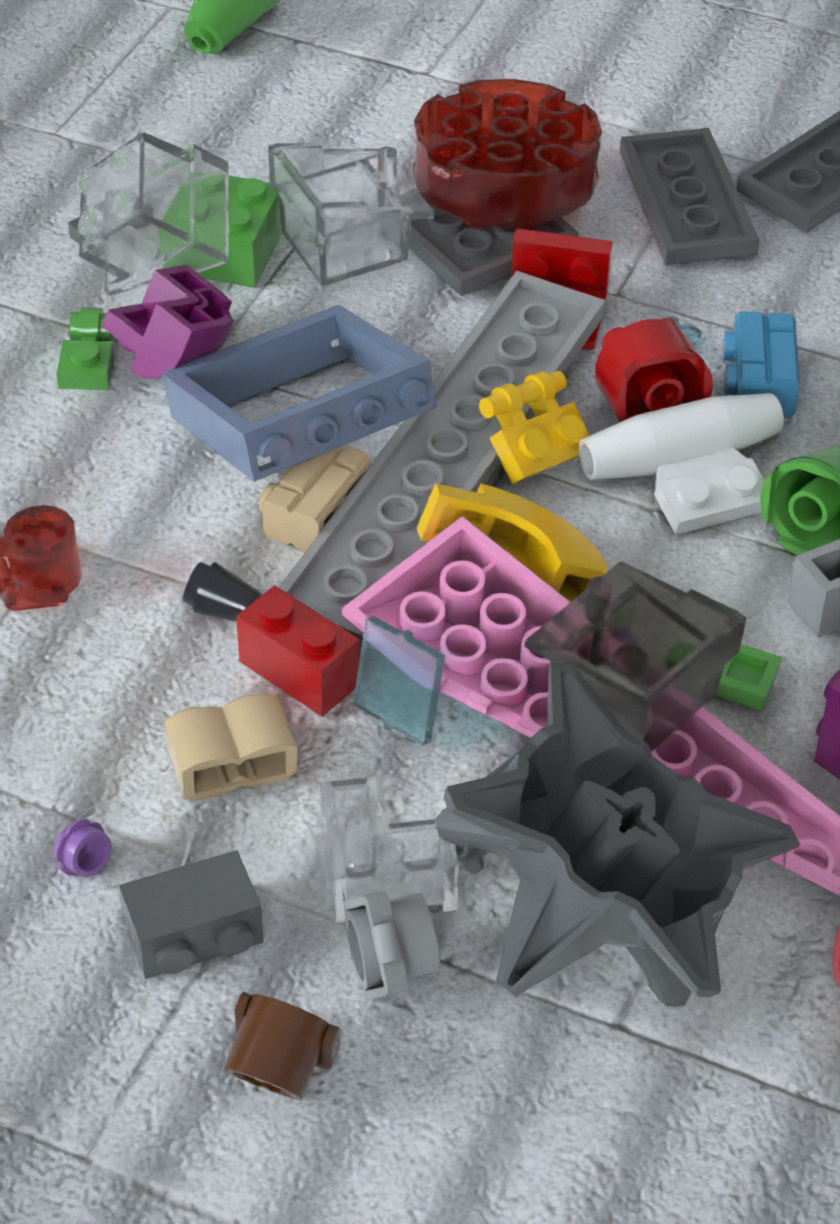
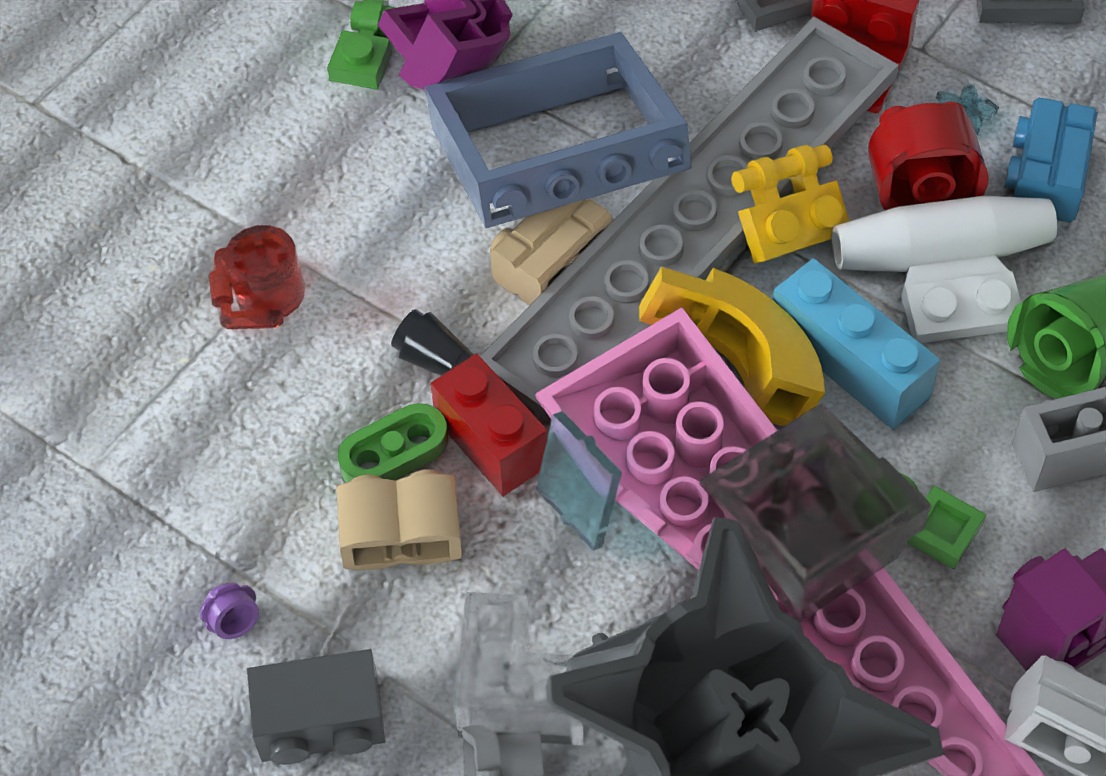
camera: 15 degrees right, 10 degrees up
(204, 682) = (390, 443): none -> bright green plate
(629, 528) = (859, 344): none -> medium azure brick

